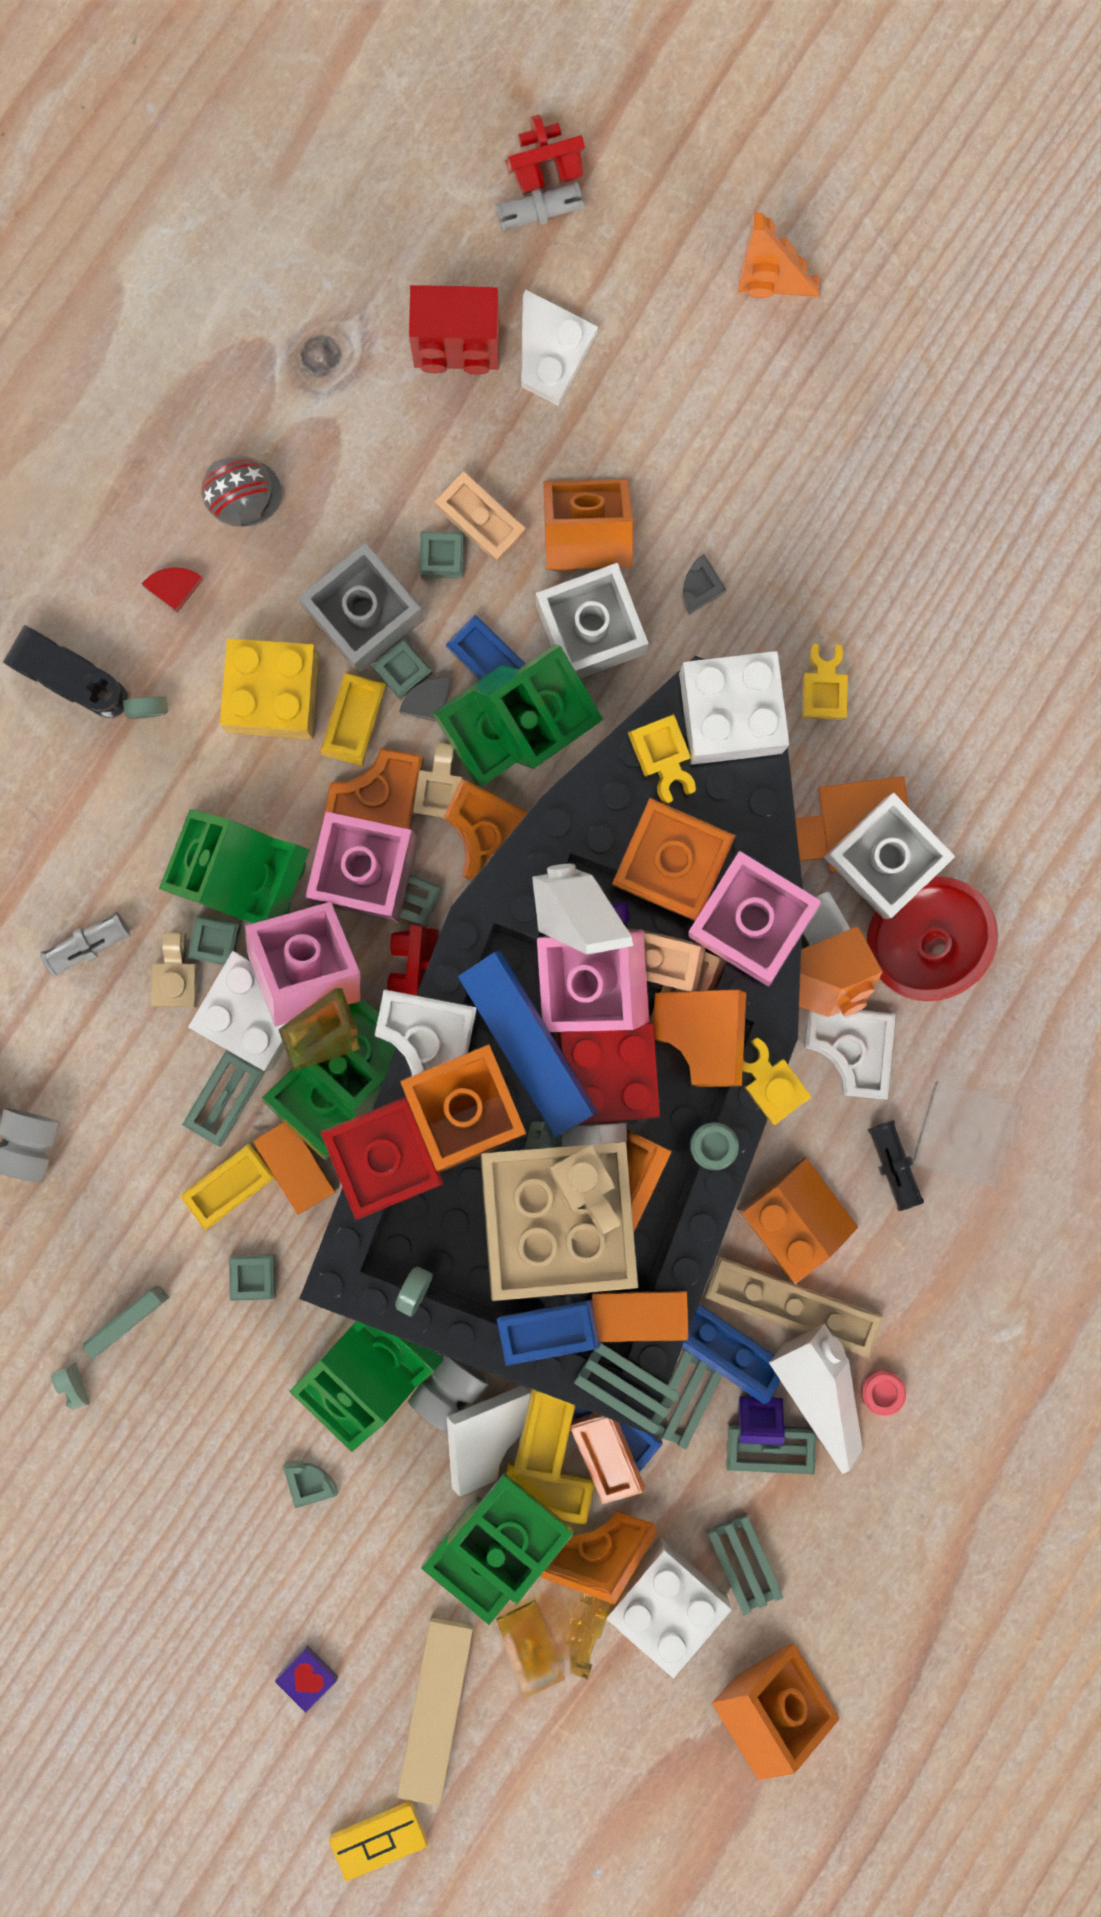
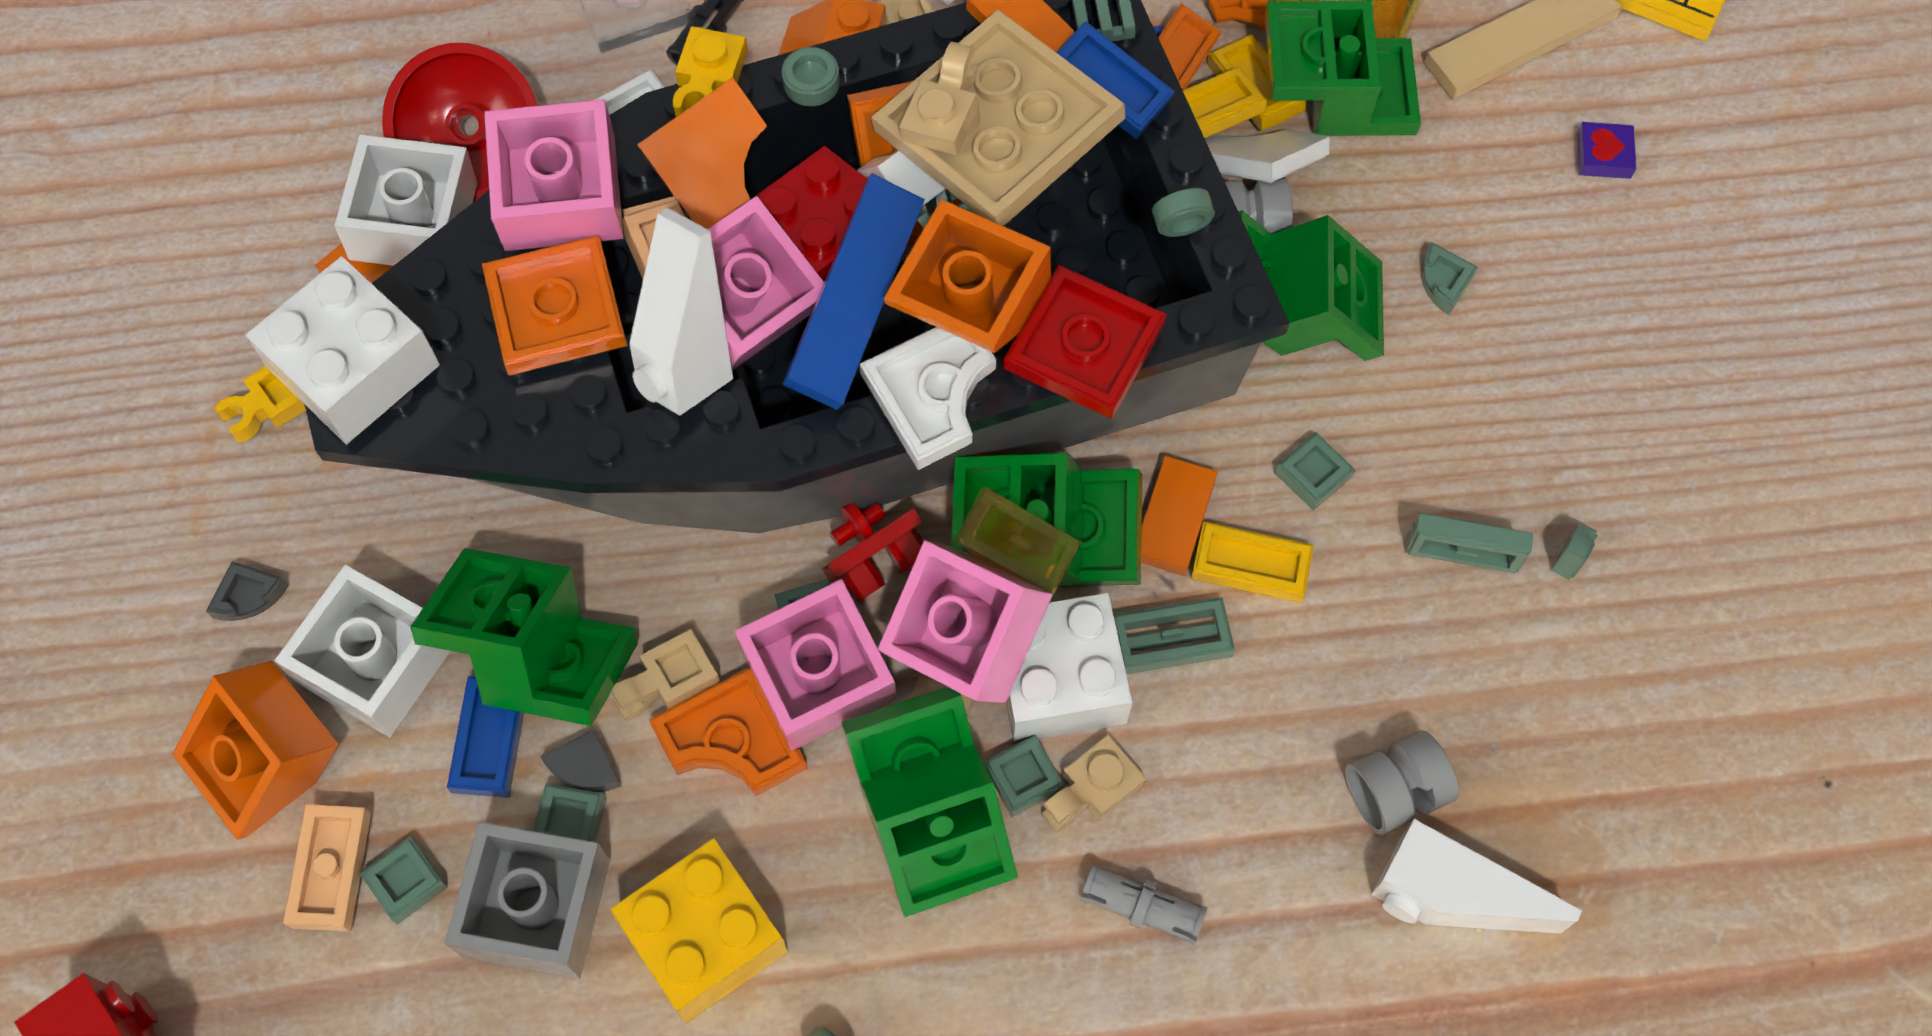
camera: 125 degrees left, 20 degrees down
(353, 719) = (664, 821): yellow tile -> none
(481, 822) = (678, 585): orange tile -> none
(552, 347) = (60, 942): white wing -> none
(660, 750) = (447, 391): yellow plate -> none

